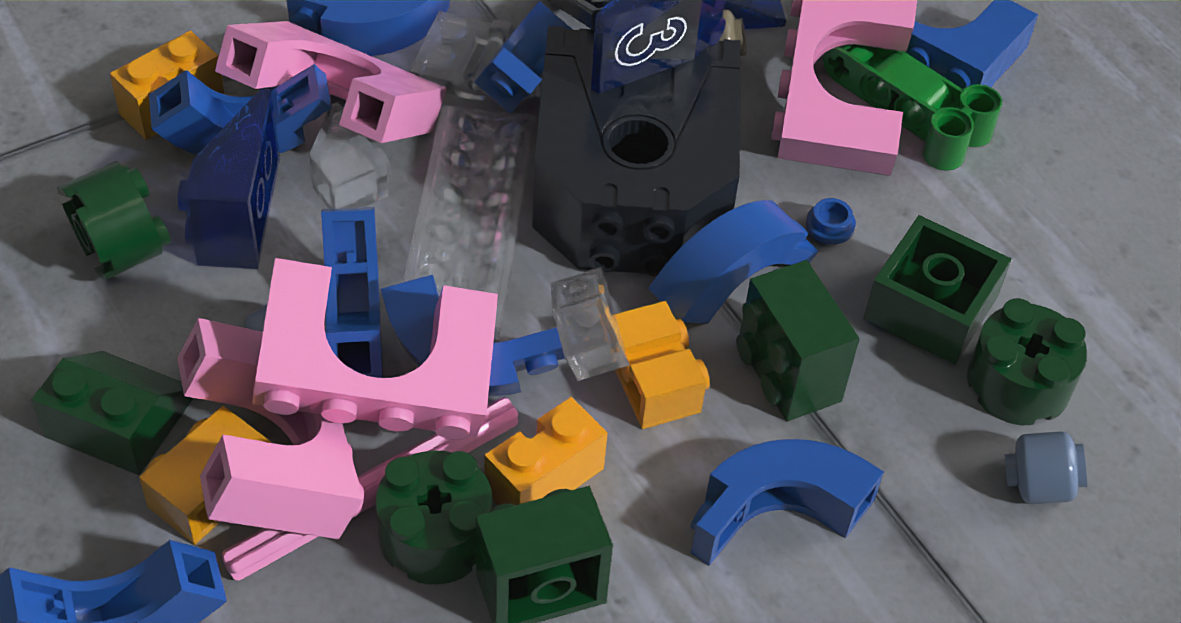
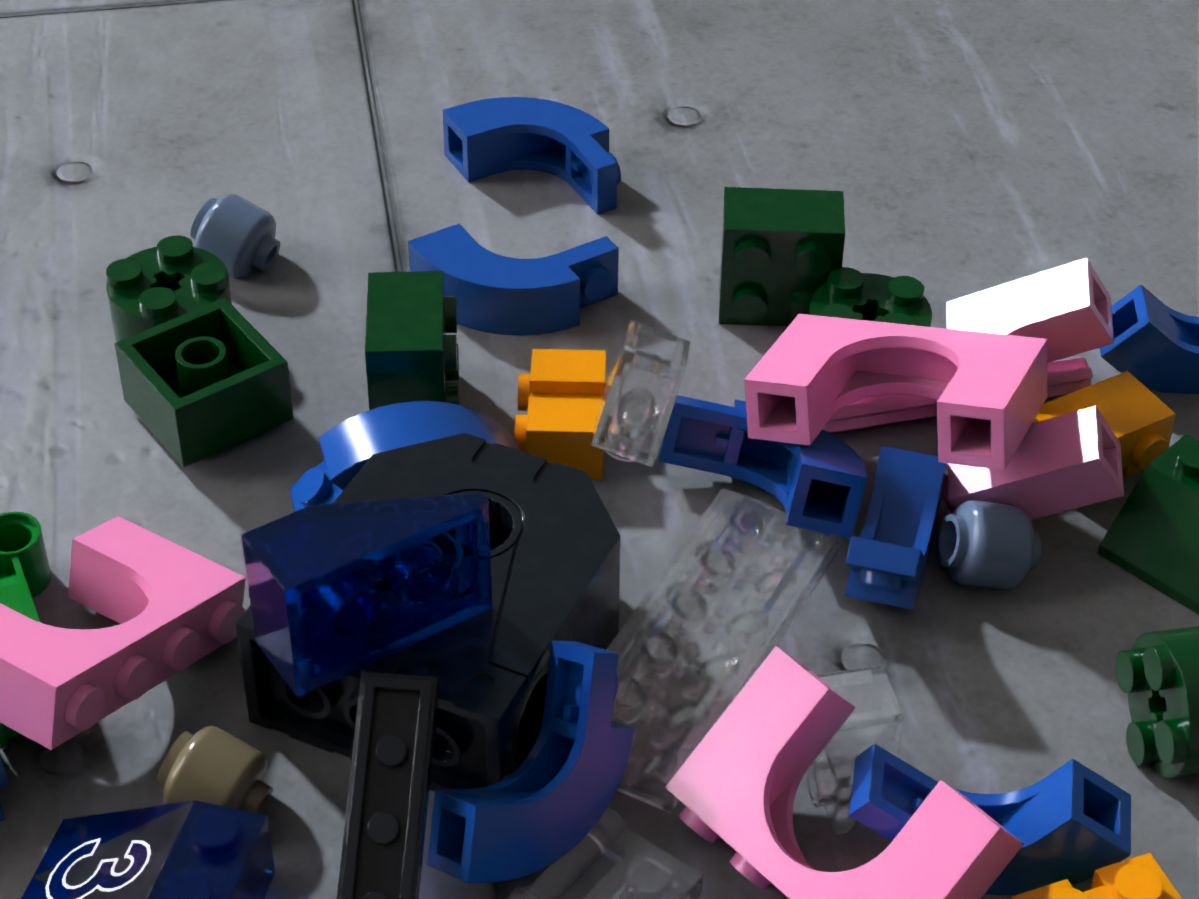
camera: 155 degrees left, 10 degrees down
(233, 188) = (1024, 688): clear blue slope -> none
(561, 456) = (727, 345): light orange brick -> none
(831, 221) = (243, 510): blue plate -> none

